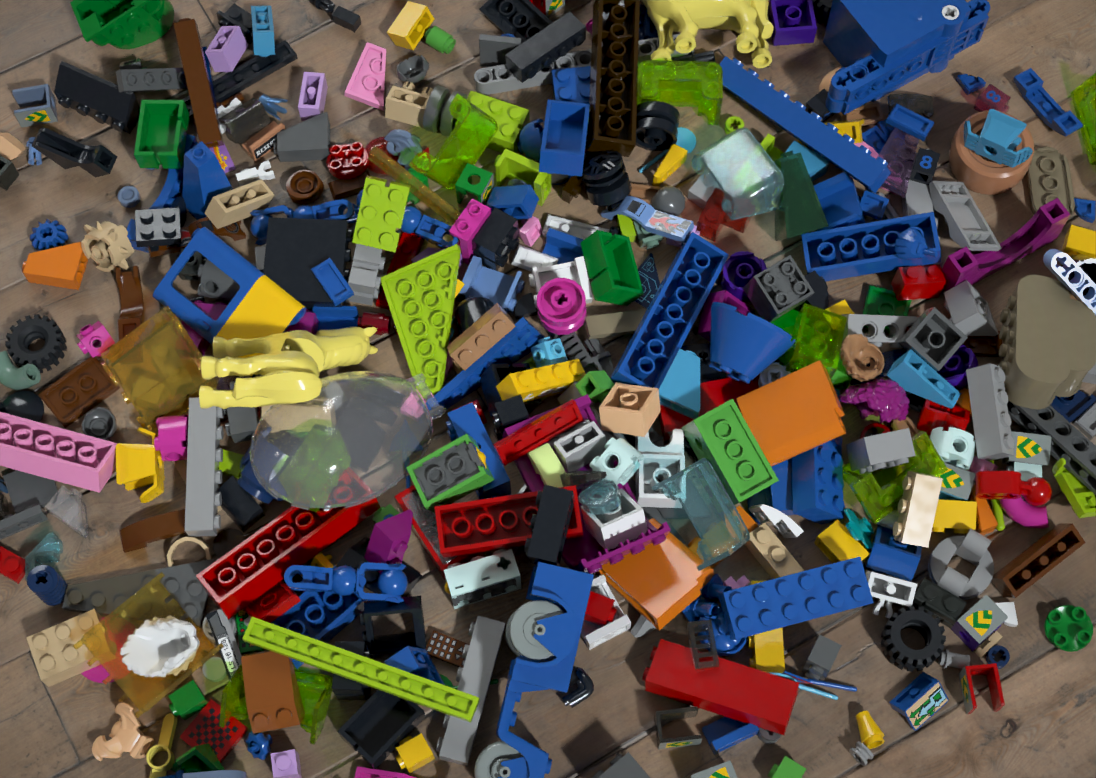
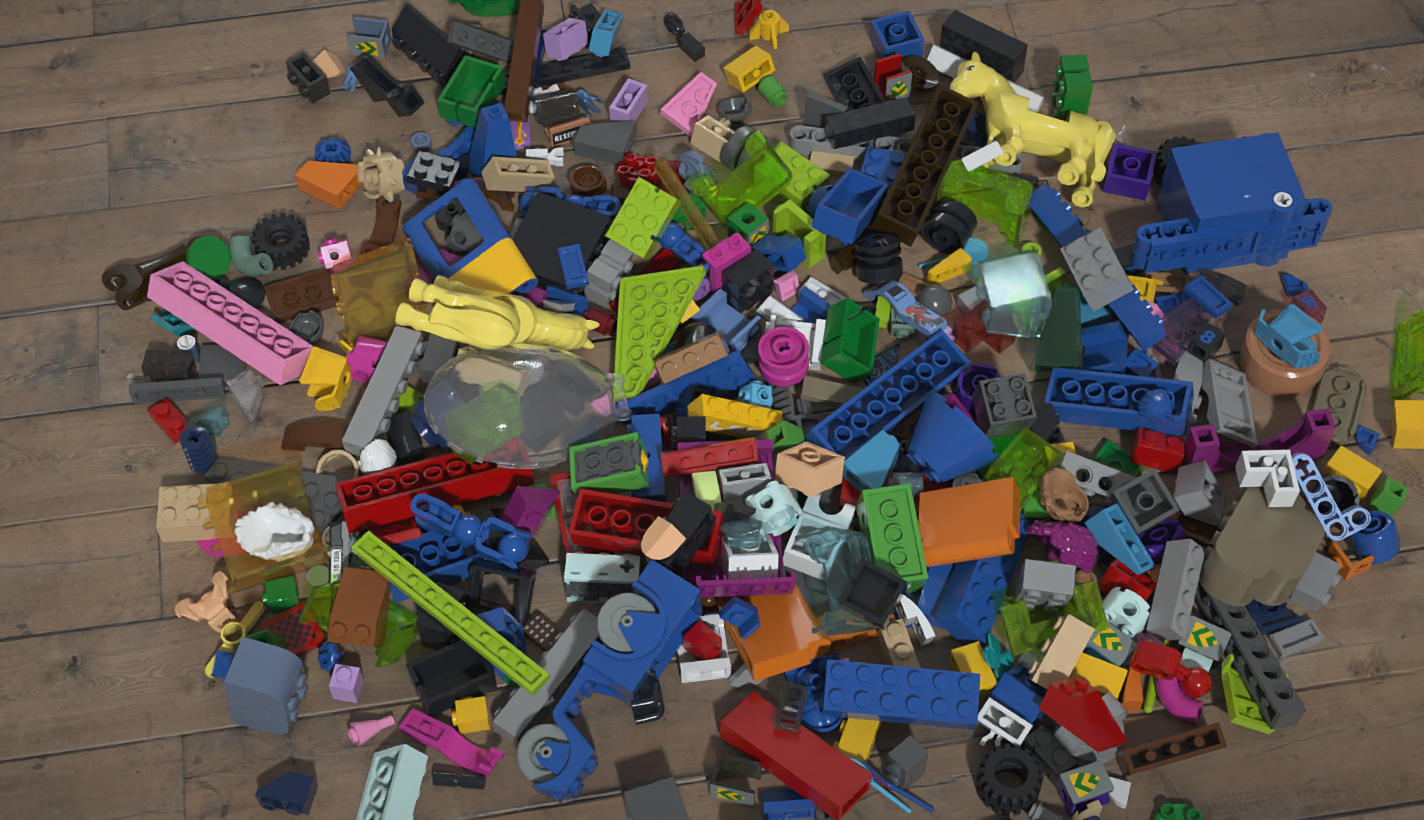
camera: 20 degrees right, 10 degrees down
(224, 535) = (377, 457): none -> white hair
(330, 322) = (558, 306): none -> light grey tile
(523, 94) = (832, 163): none -> tan tile
(541, 541) = (661, 539): none -> light nougat brick
(629, 575) = (741, 615): none -> blue bracket
(666, 51) = (982, 156): none -> white sticker
(719, 393) = (913, 479): none -> clear light blue brick
(740, 516) = (874, 594): none -> black piece
(809, 129) = (1096, 269): none -> light grey brick
(958, 559) = (1082, 712): none -> red slope
(1037, 276) = (1272, 471): none -> white brick
(1044, 105) = (1362, 326): blue slope -> none

